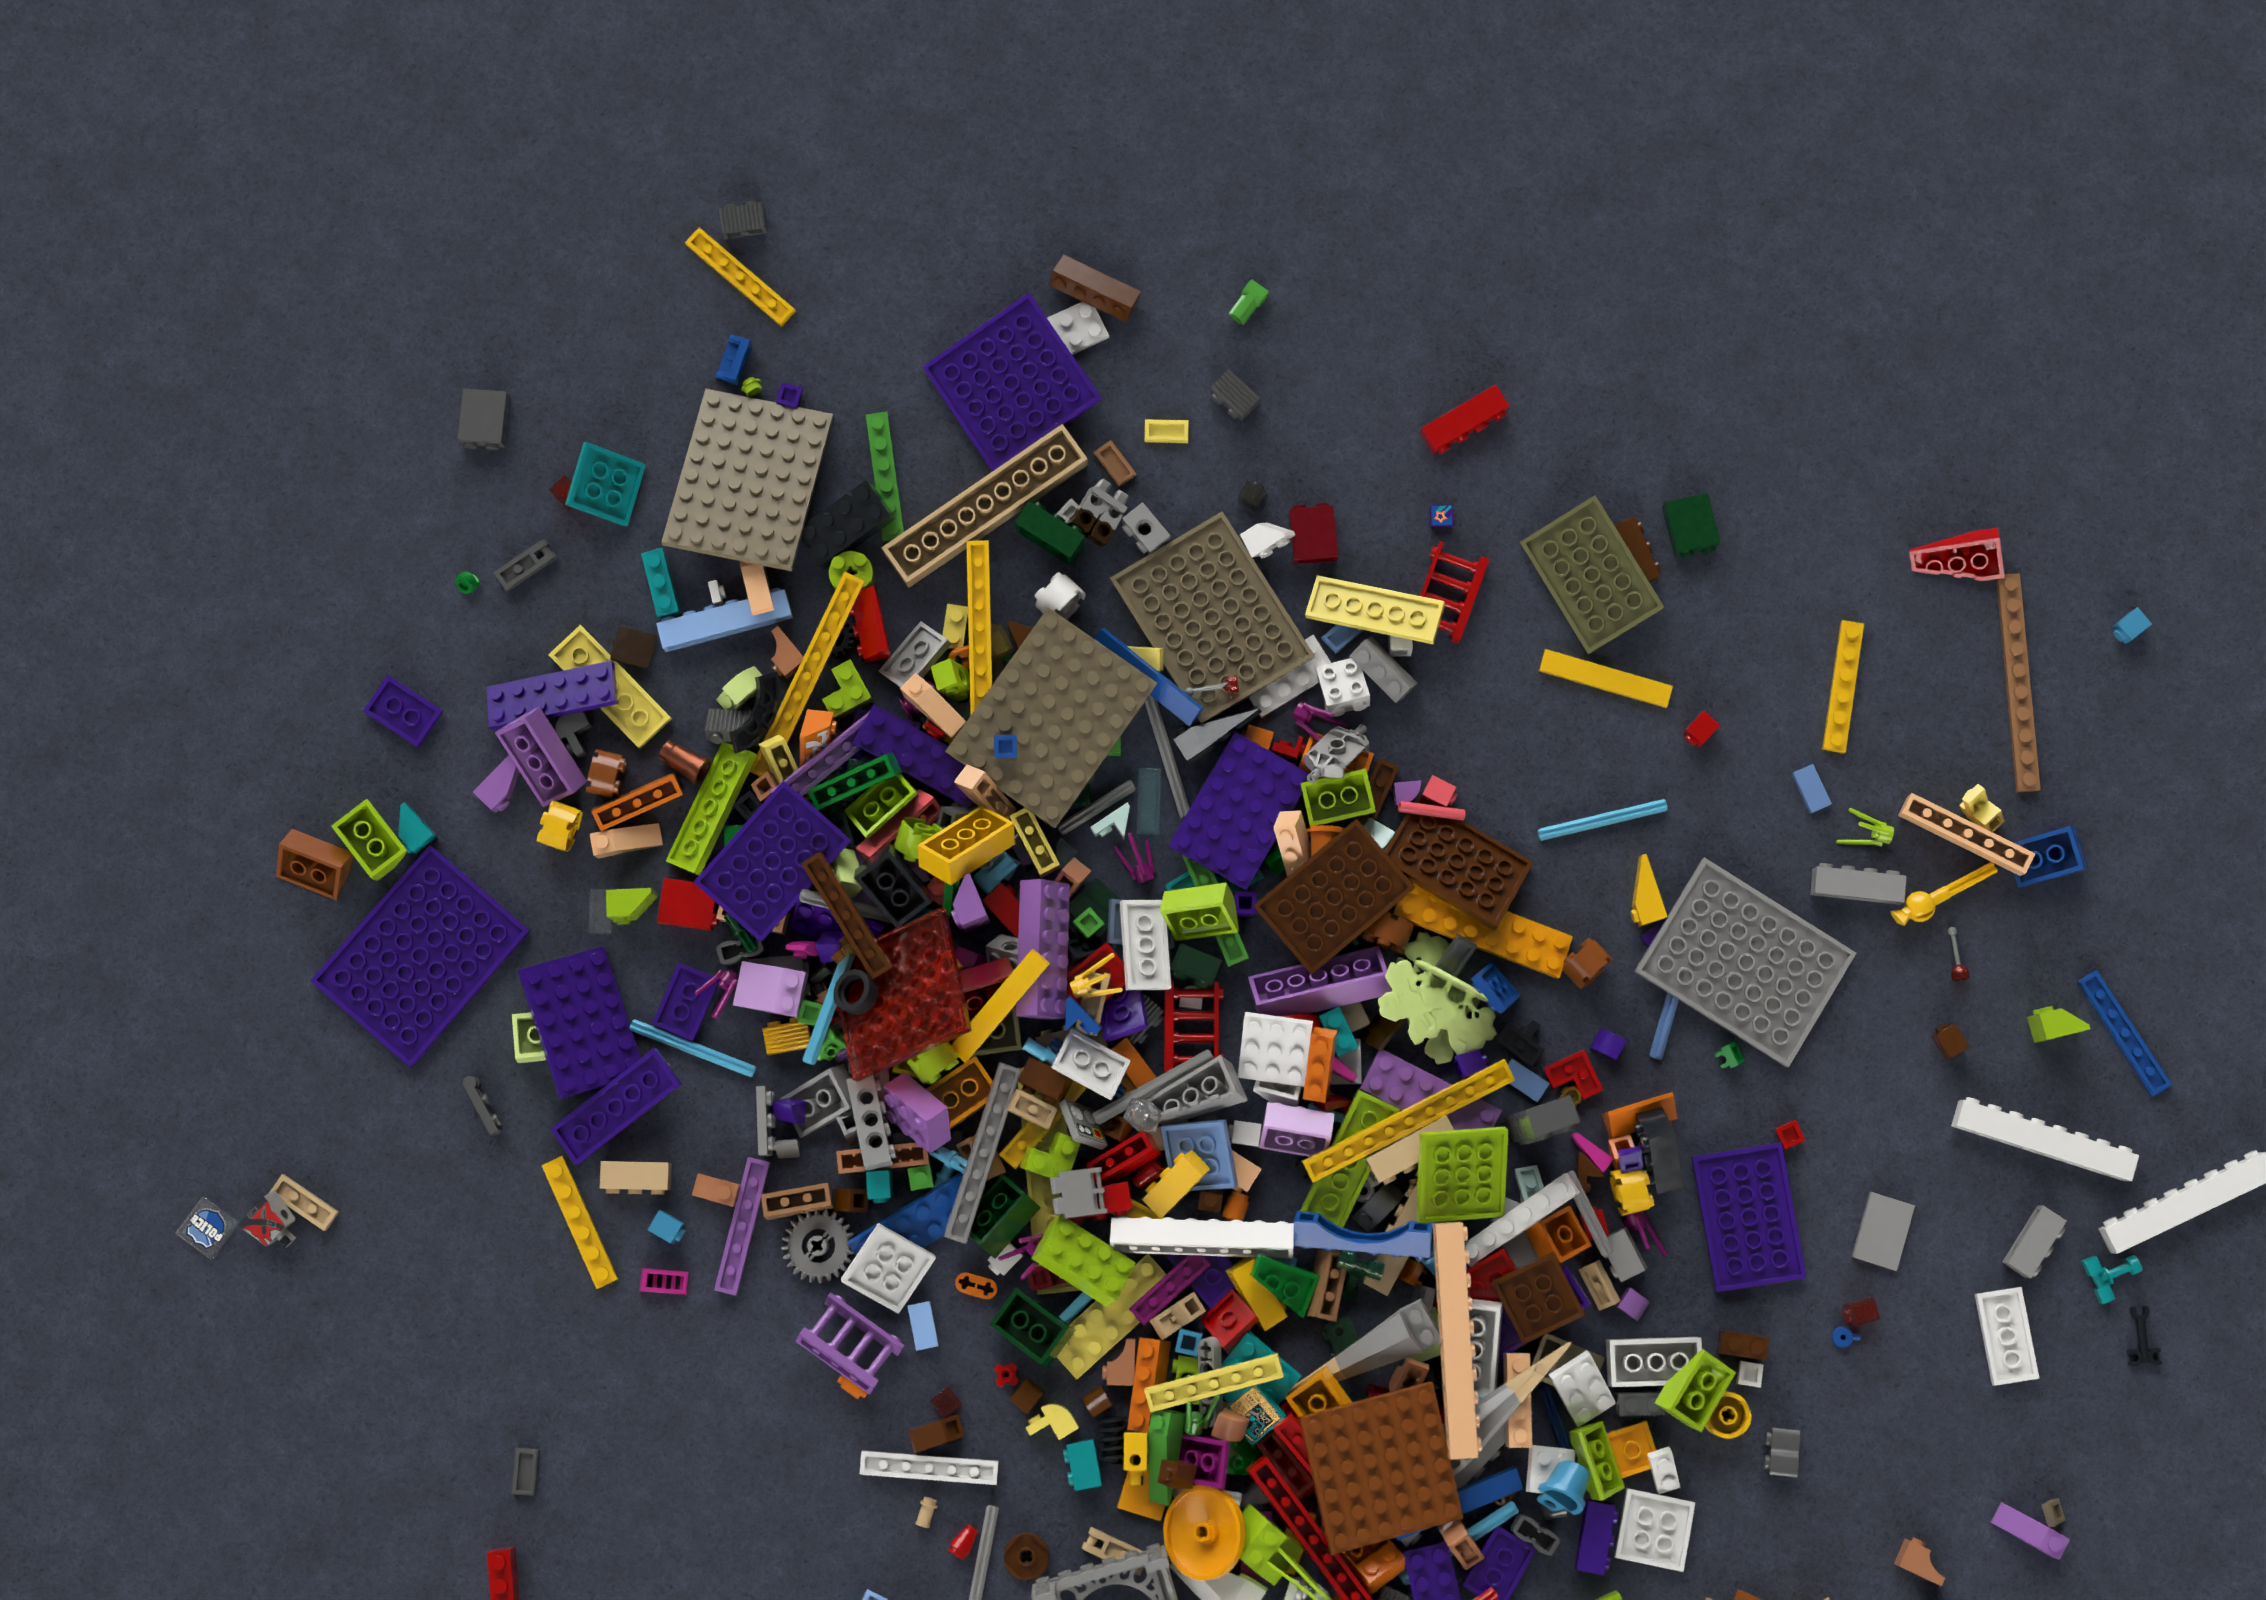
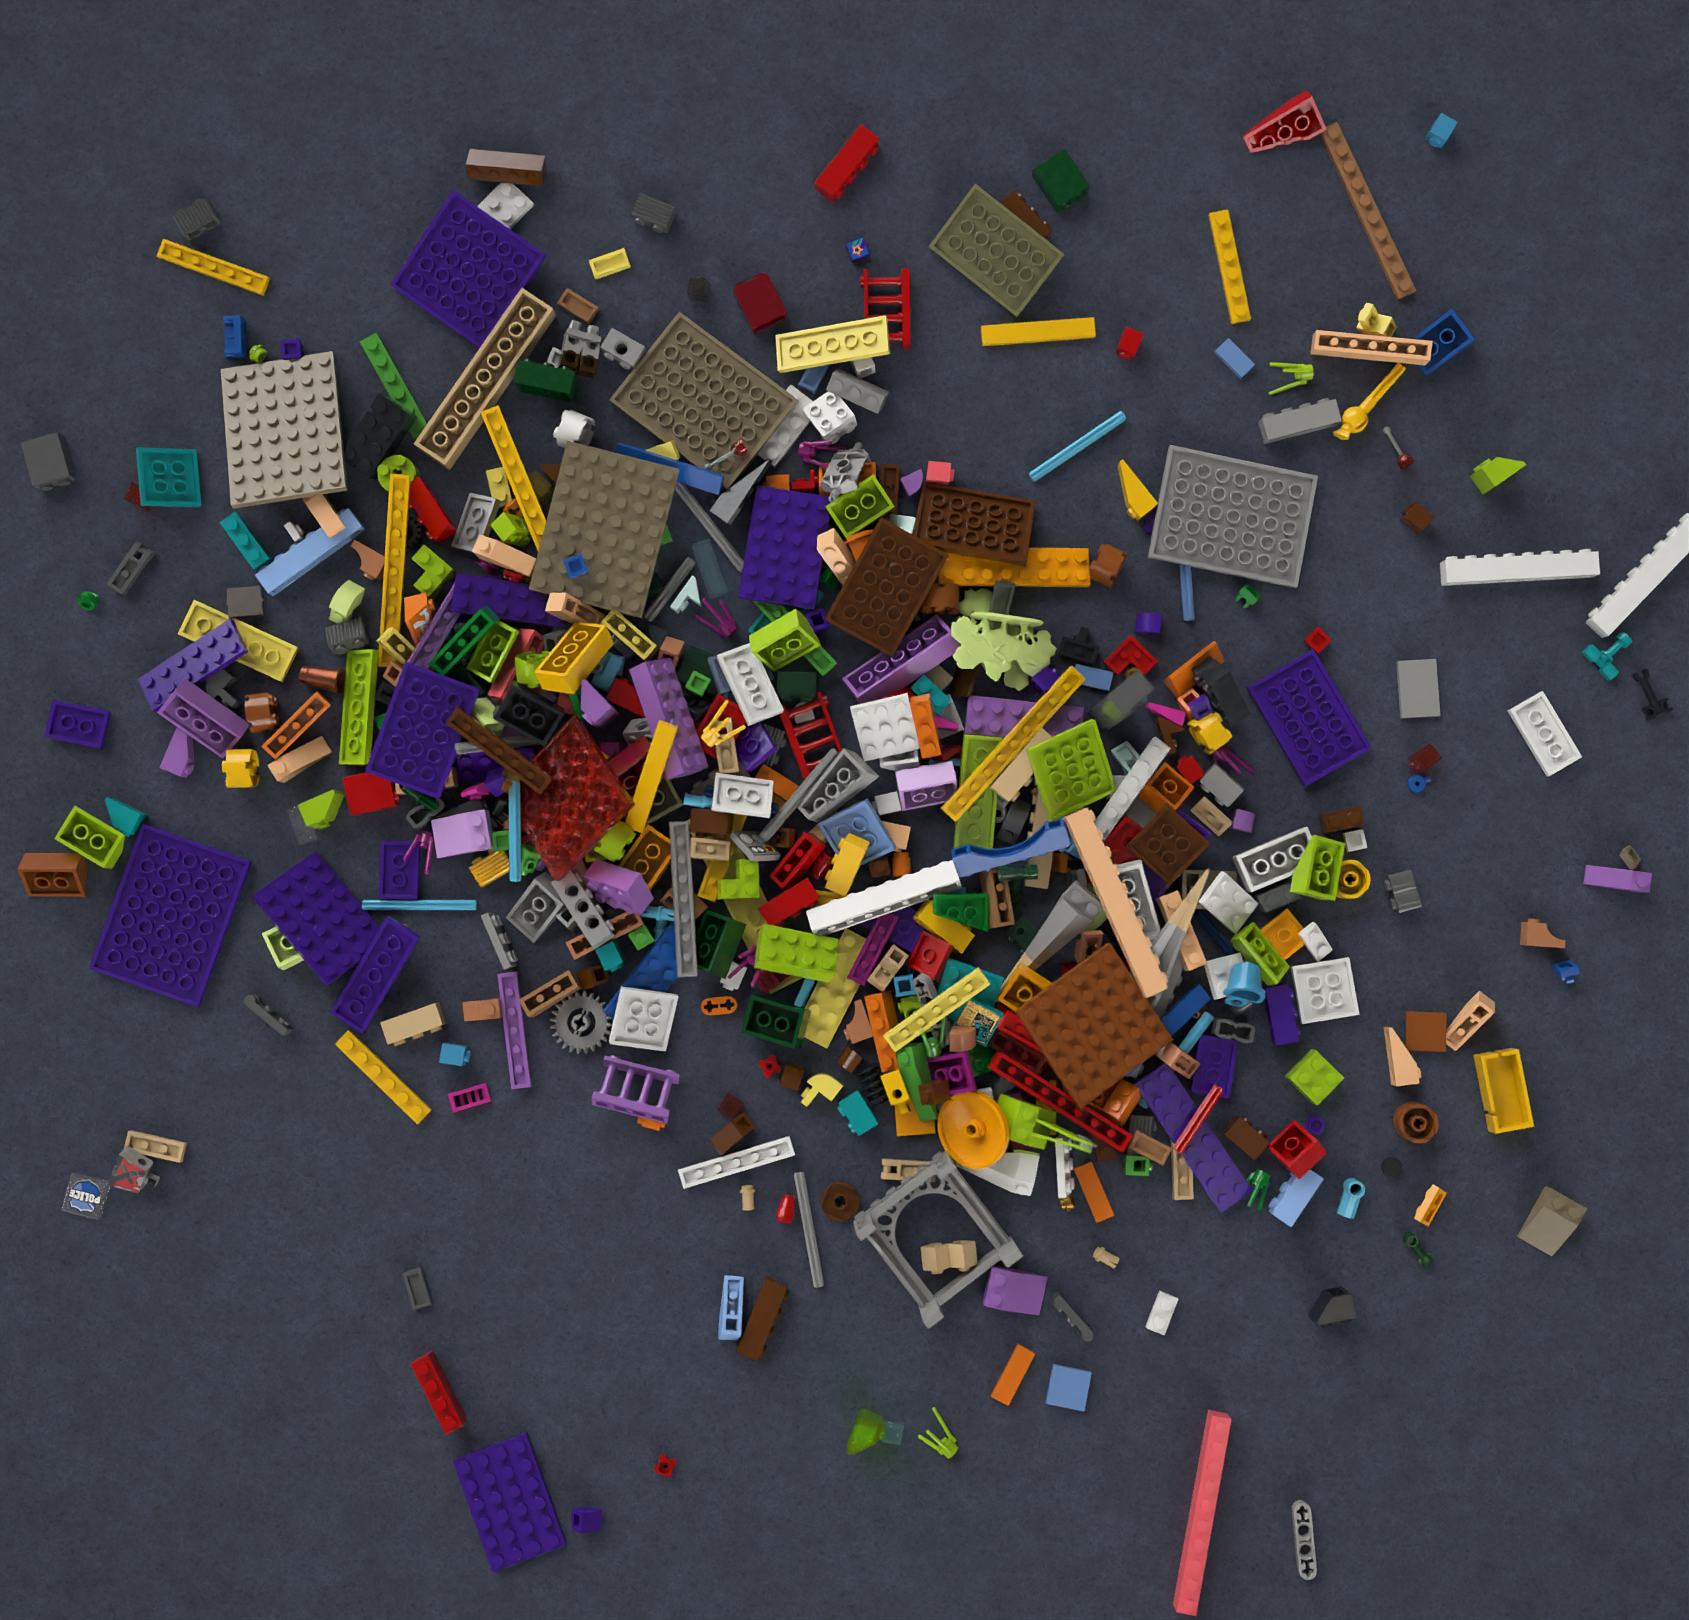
camera: 20 degrees left, 5 degrees up
(762, 715) = (369, 618): black tile -> none
(787, 1148) = (527, 955): light grey slope -> none
(789, 1110) = (516, 924): dark purple brick -> none
(842, 989) = (520, 806): black tyre -> none
(923, 1325) = (689, 1053): light blue tile -> none
(1076, 1012) = (714, 758): blue slope -> none
(1078, 1193) = (771, 901): light grey plate -> none
(1143, 1115) = (799, 820): clear brick -> none
(1251, 298) = (637, 128): bright green piece -> none
(1264, 538) = (721, 320): white slope -> none
(1431, 810) = (938, 489): coral piece -> none
(1495, 987) = (1042, 611): blue plate -> none
(1590, 1218) = (1186, 766): light grey axle -> none
(2035, 1242) = (1540, 651): light grey brick -> none
(2124, 1033) = (1550, 460): blue tile -> none

